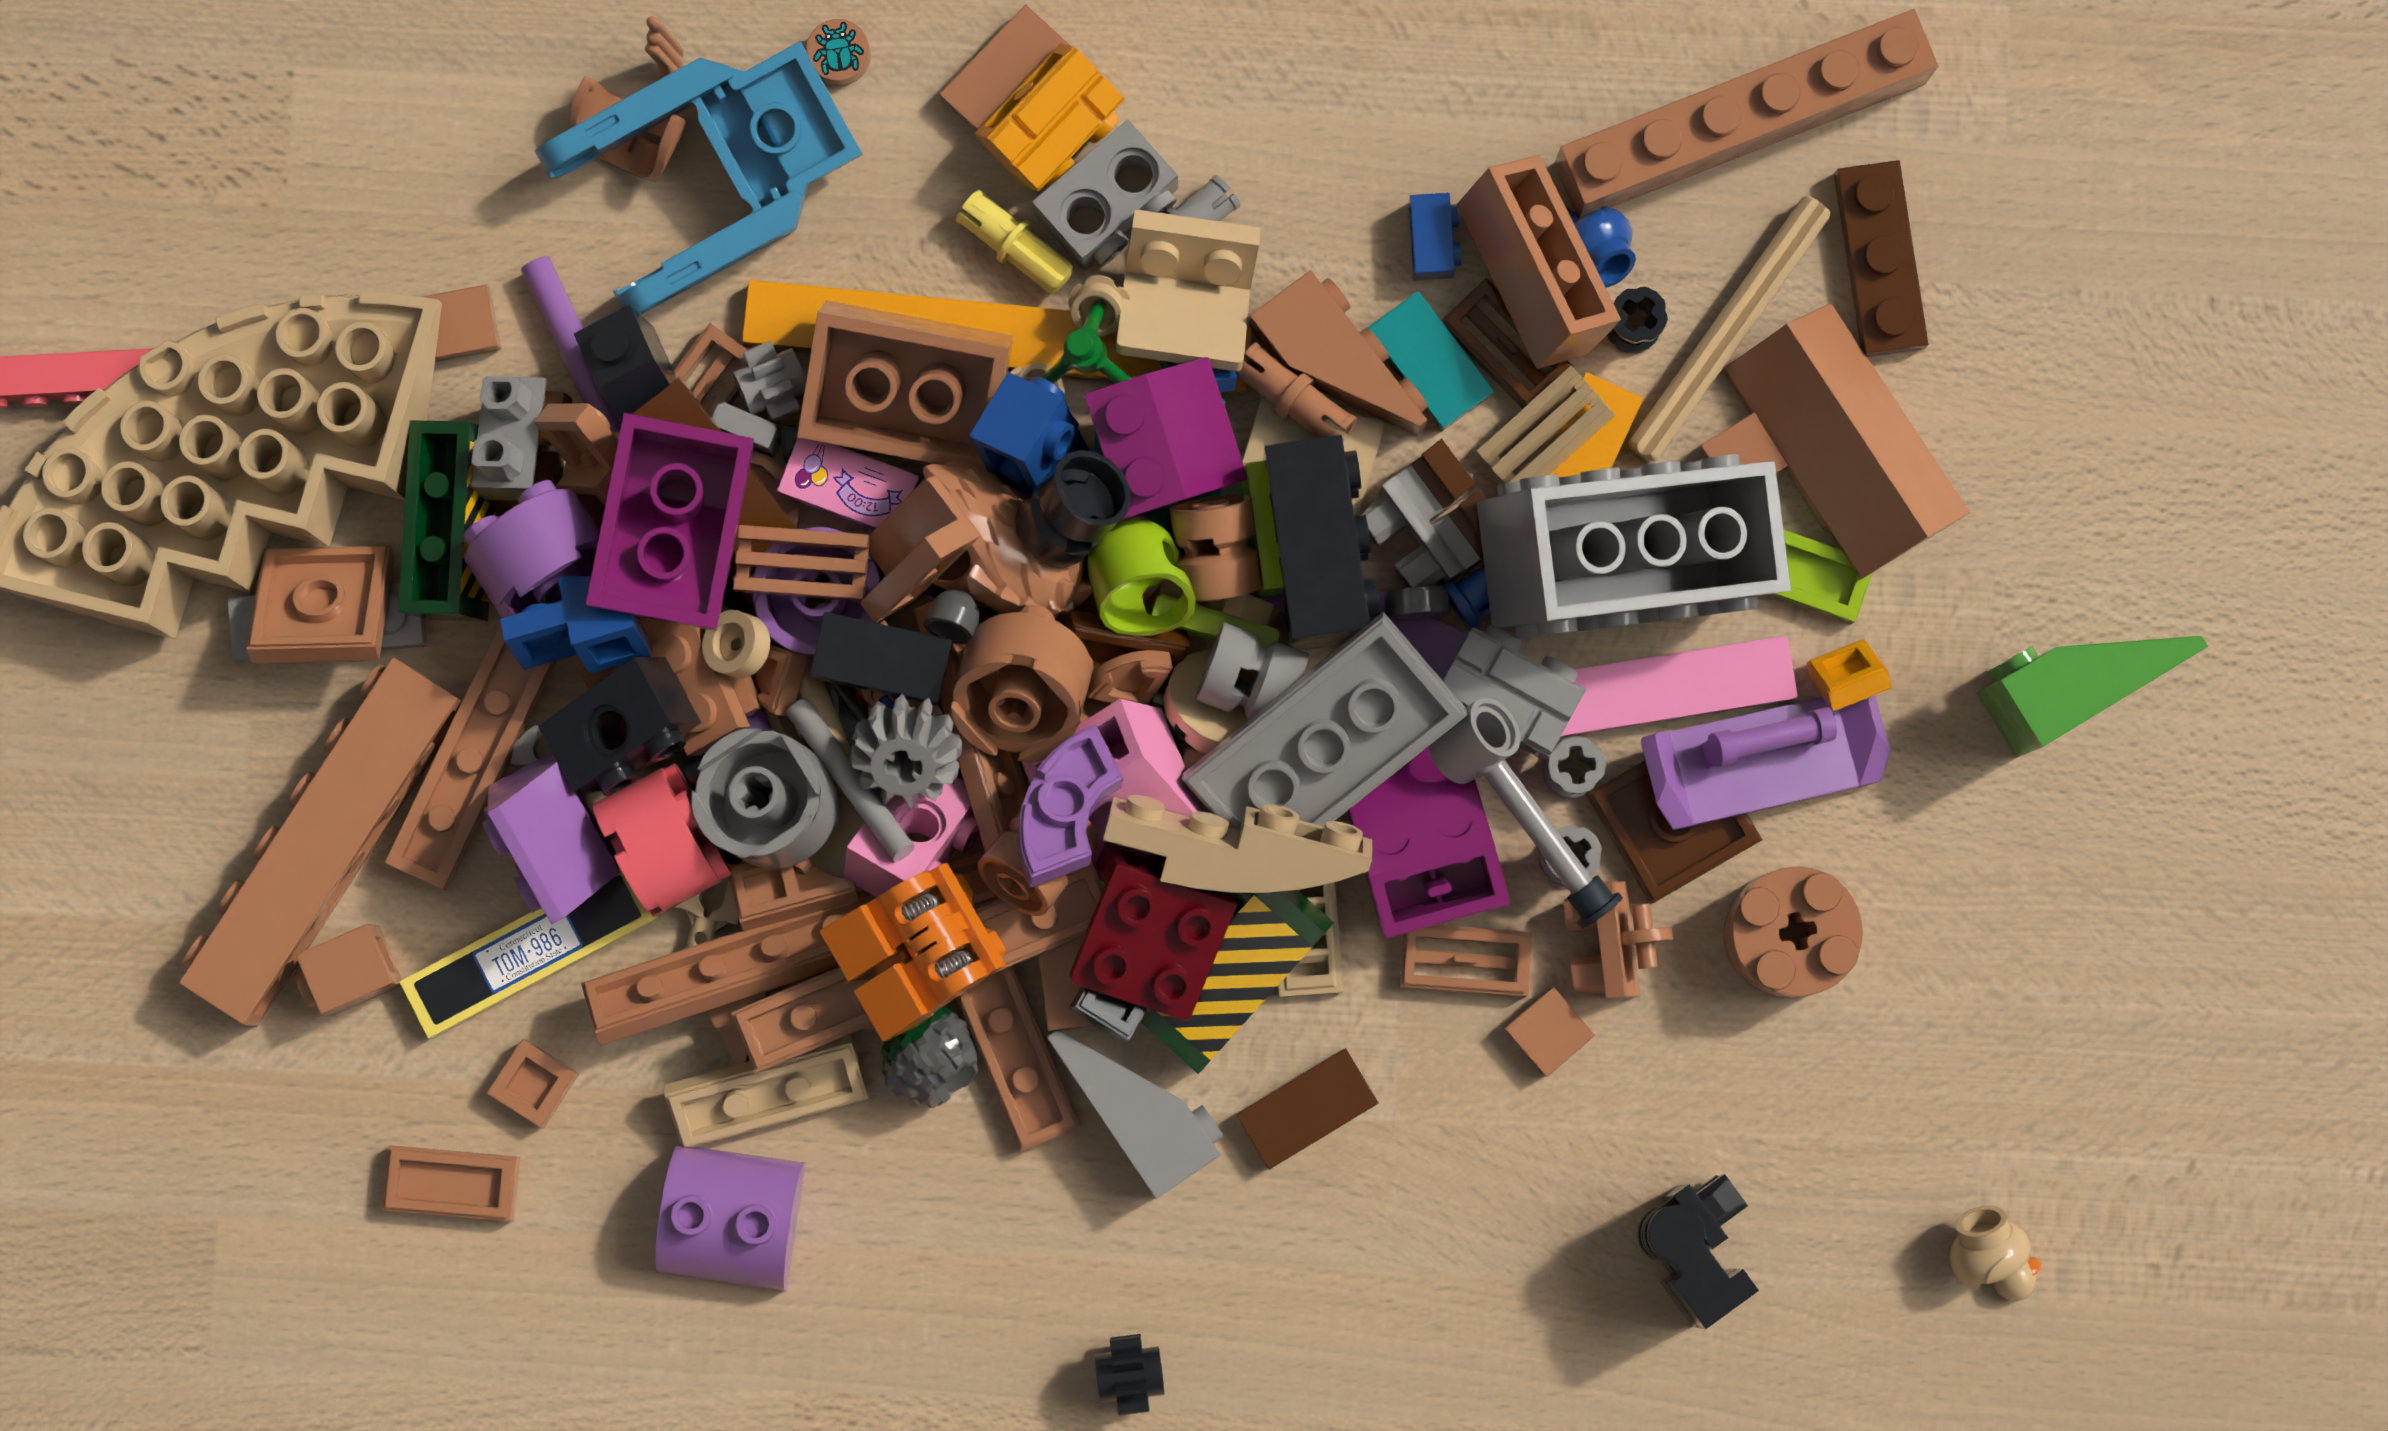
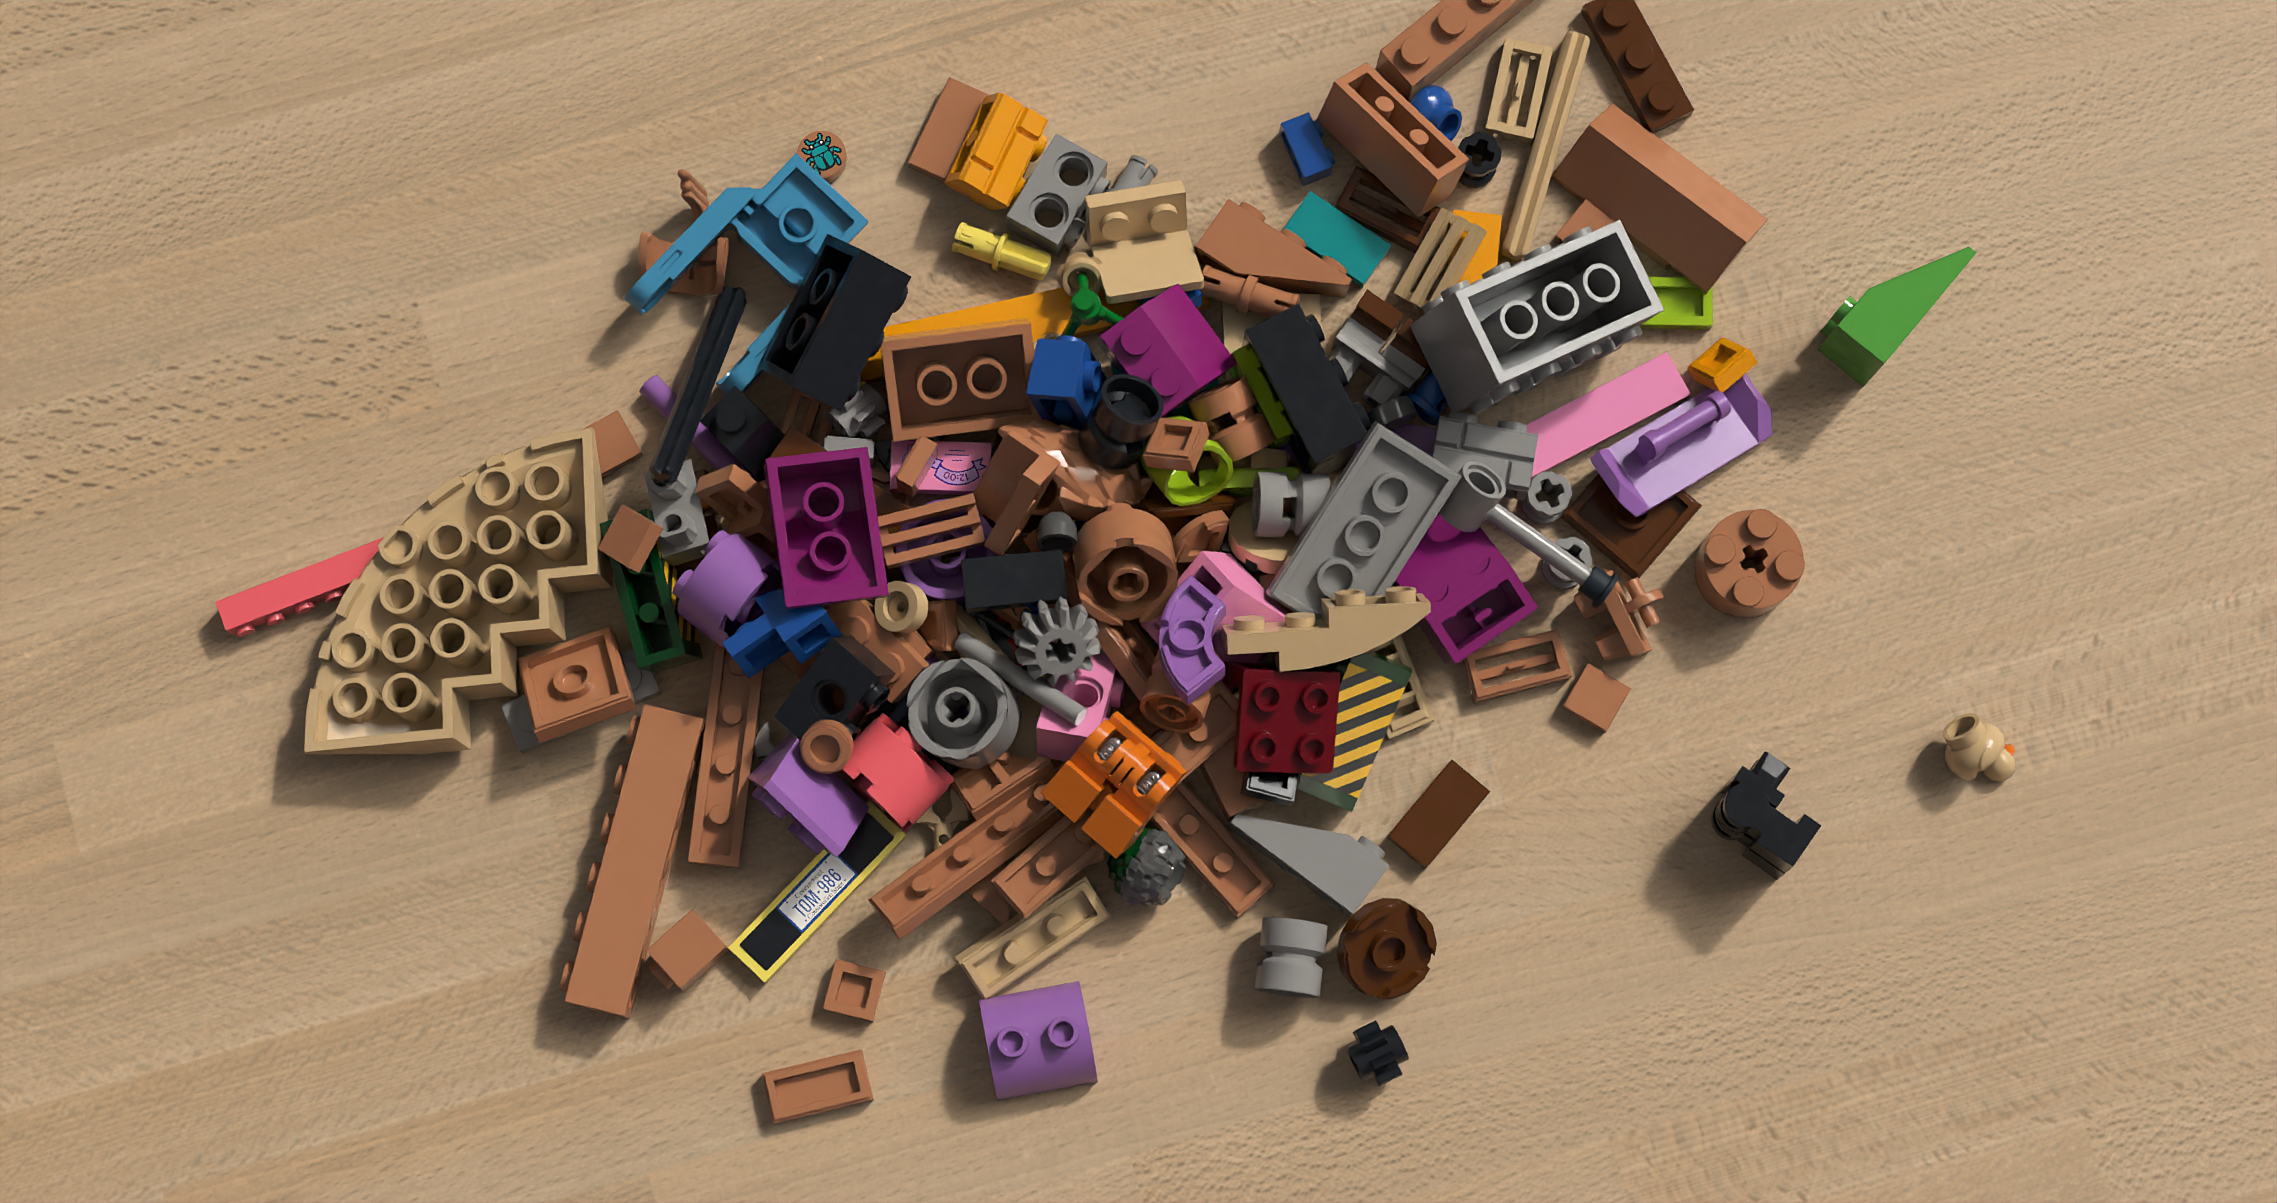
camera: 25 degrees left, 5 degrees down
(436, 453) = (630, 538): none -> nougat tile
(585, 289) = (697, 385): none -> black axle
(585, 786) = (826, 746): none -> nougat tile
(772, 270) = (835, 322): none -> black brick
(815, 476) = (916, 465): none -> nougat tile
(1065, 1224) = (1291, 957): none -> light grey wheel
(1130, 559) = (1176, 444): none -> nougat tile
(1184, 1252) = (1386, 948): none -> reddish brown tile
(1691, 294) = (1510, 129): none -> tan tile

